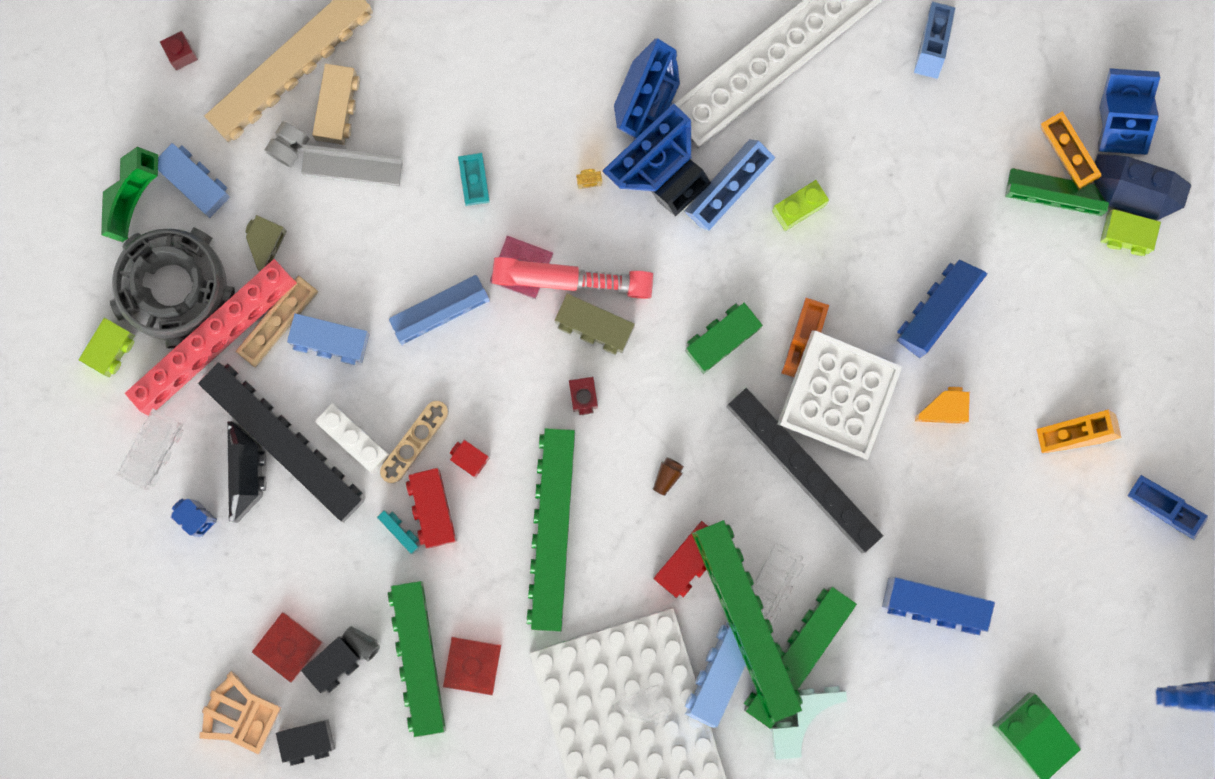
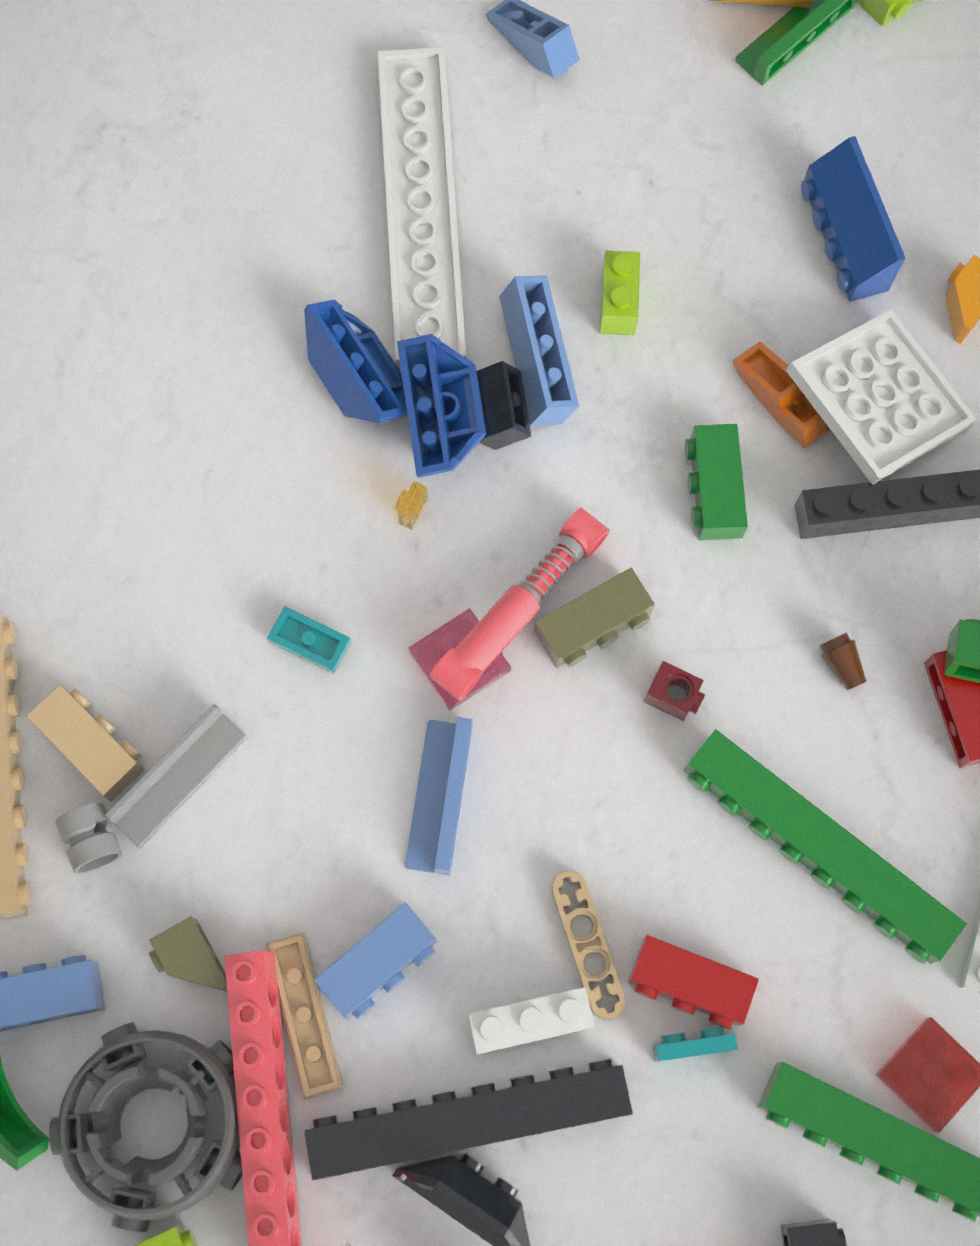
camera: 55 degrees left, 10 degrees down
(362, 644) = (811, 1203): dark grey cone -> none
(468, 458) = (658, 888): red brick -> none

